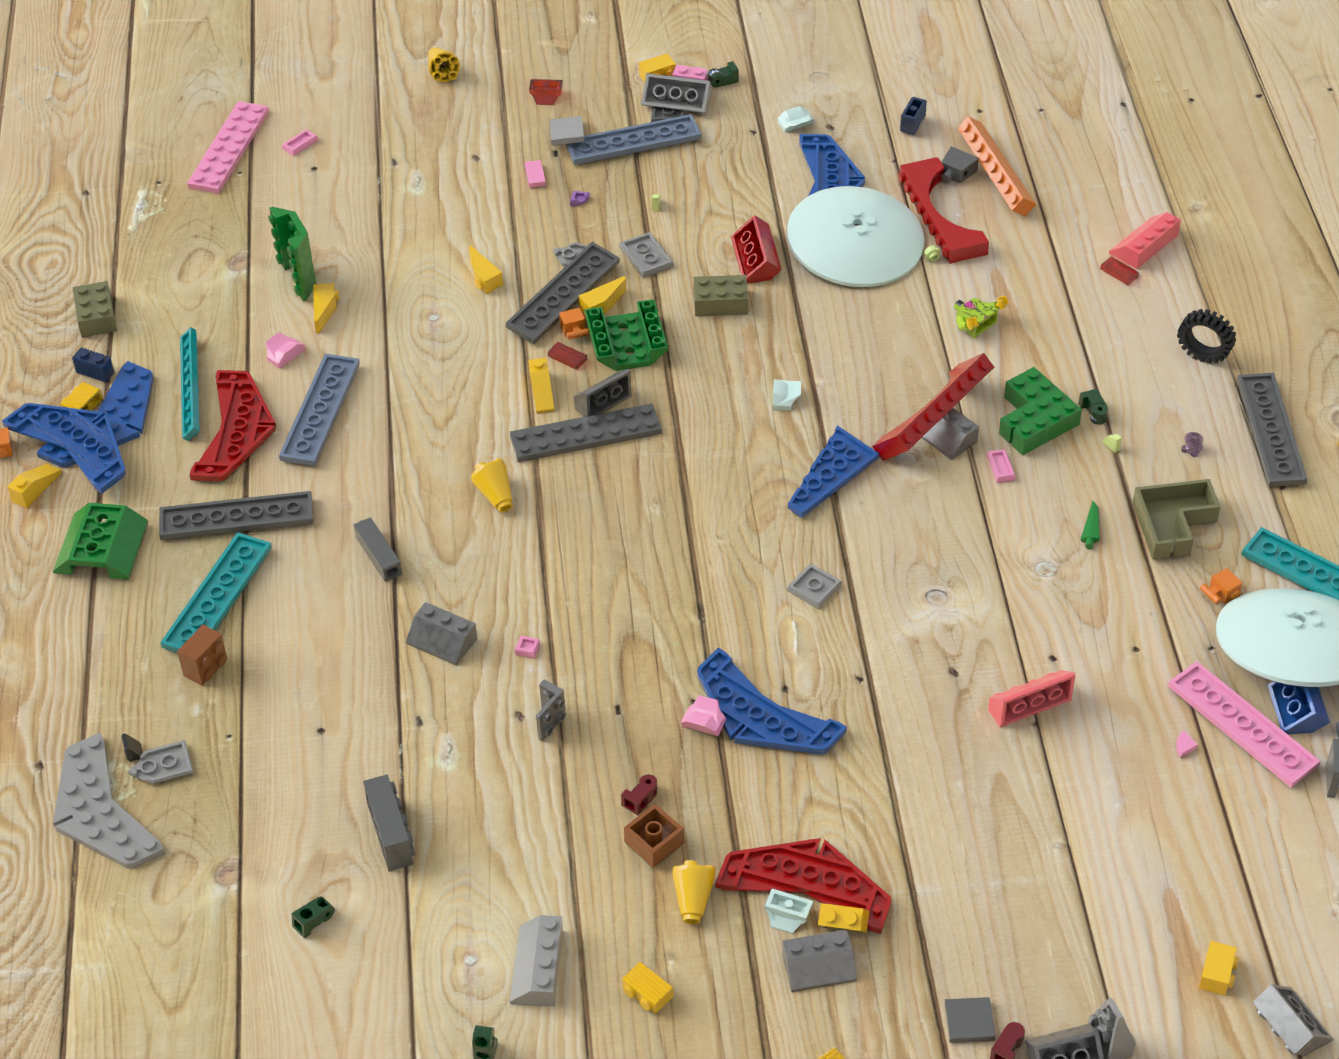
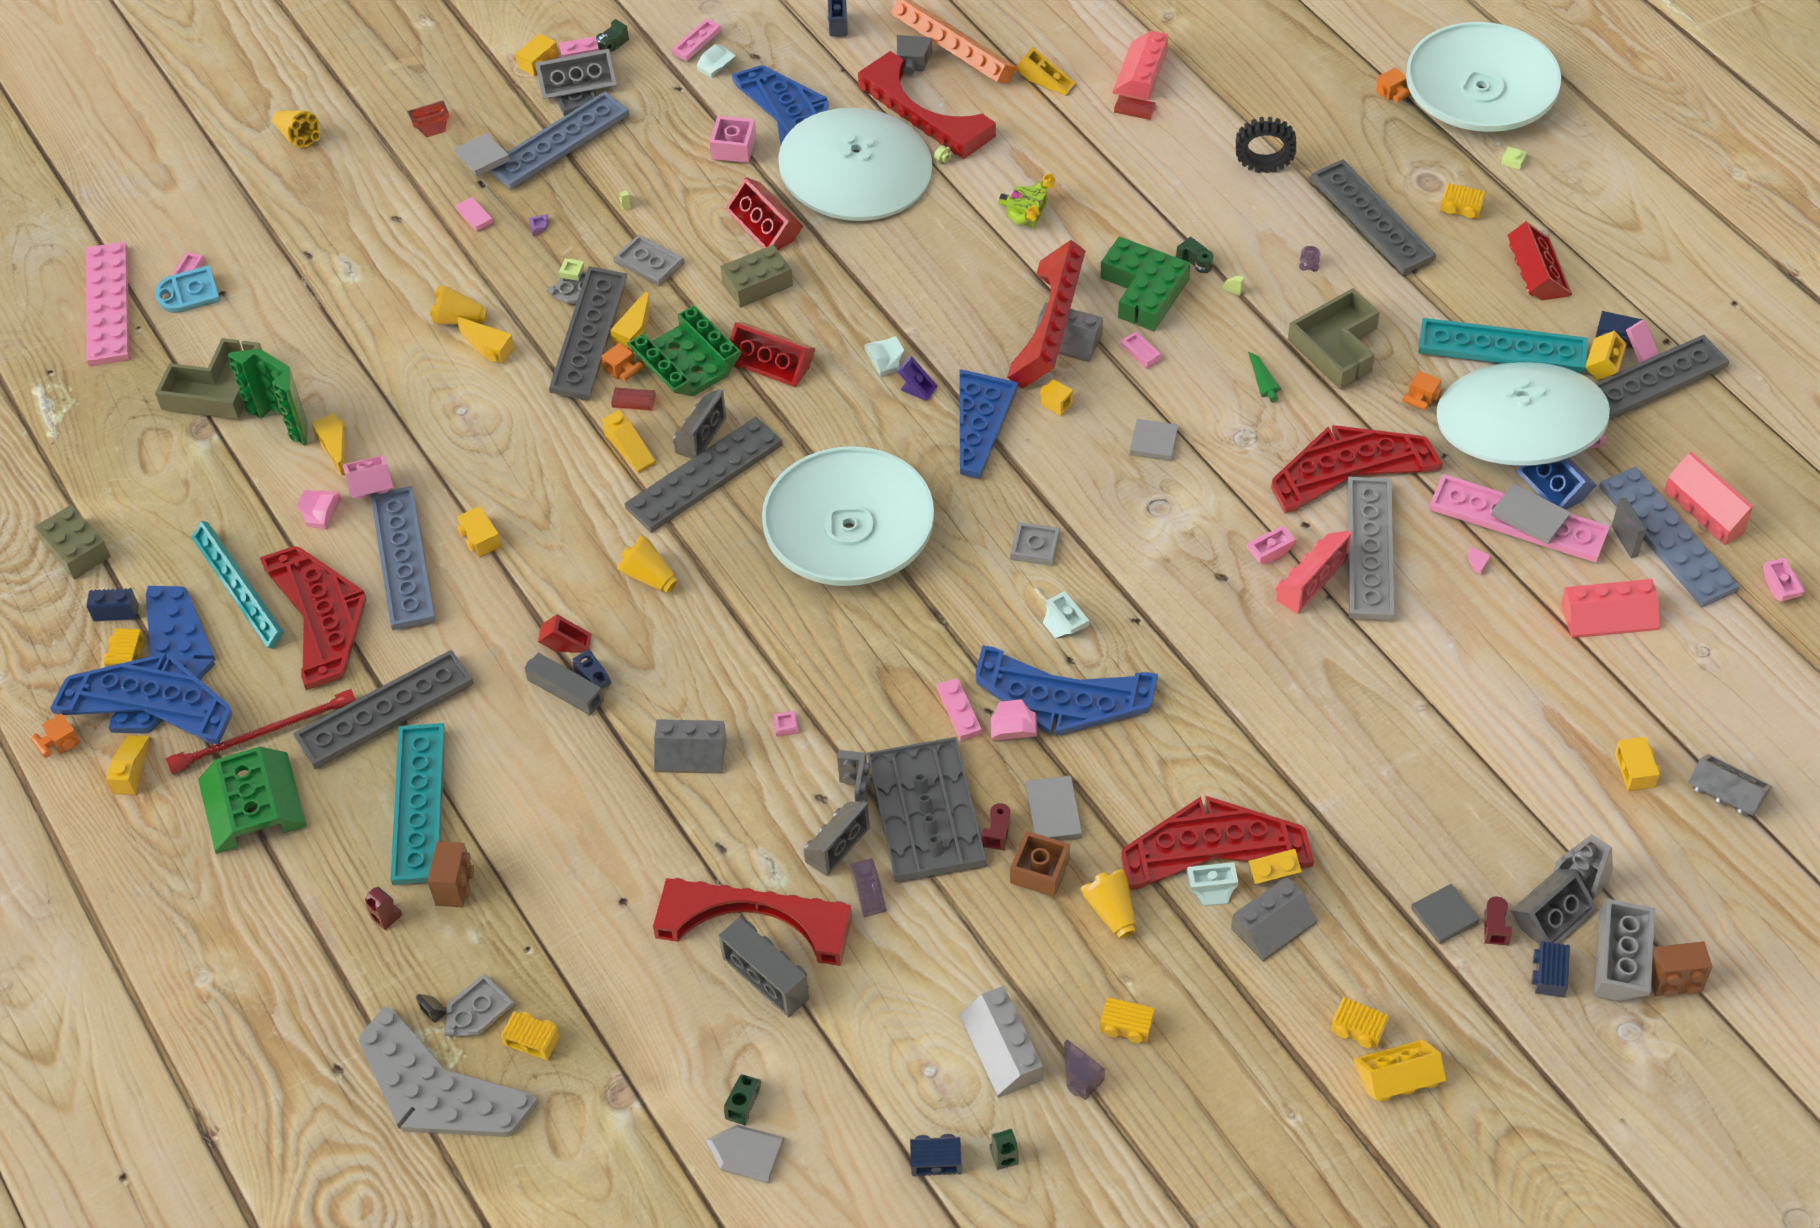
camera: 25 degrees left, 5 degrees up
(69, 496) = (182, 761): none -> red hose
(140, 660) = (381, 908): none -> dark red leg
(188, 800) = (530, 1035): none -> yellow brick
(253, 232) = (203, 389): none -> olive piece
(290, 157) = (187, 290): none -> medium azure tile
(291, 958) = (746, 1152): none -> light grey tile
(328, 339) = (368, 477): none -> bright pink brick
(365, 752) = (691, 903): none -> red arch
(387, 411) = (479, 532): none -> yellow brick
(400, 513) = (564, 636): none -> red slope
(404, 547) = (591, 669): none -> dark blue leg
(430, 1025) = (935, 1155): none -> dark blue brick
(472, 234) = (454, 305): none -> yellow cone
(509, 749) = (837, 837): none -> flat silver slope
(509, 797) = (868, 887): none -> slope
(579, 240) = (571, 269): none -> yellowish green plate
(584, 1012) = (1081, 1071): none -> clear purple slope
(594, 757) = (926, 809): none -> dark grey piece
(666, 480) = (843, 486): none -> light aqua dish
(670, 690) = (959, 709): none -> bright pink plate
(694, 359) = (771, 354): none -> red slope
(696, 798) = (1054, 808): none -> light grey tile
(767, 183) = (733, 139): none -> bright pink brick
(789, 98) = (696, 40): none -> bright pink plate
(798, 423) = (917, 380): none -> dark purple slope
(799, 650) = (1064, 616): none -> light aqua slope
(903, 477) = (1056, 397): none -> yellow brick
(965, 540) = (1154, 439): none -> light grey tile
(1009, 662) = (1271, 545): none -> bright pink slope
(1057, 216) = (1042, 71): none -> yellow slope
(1094, 698) = (1370, 549): none -> light grey plate
(1132, 616) = (1354, 453): none -> red wing
(1253, 723) = (1530, 513): none -> light grey tile
(1278, 830) = (1611, 608): none -> coral slope

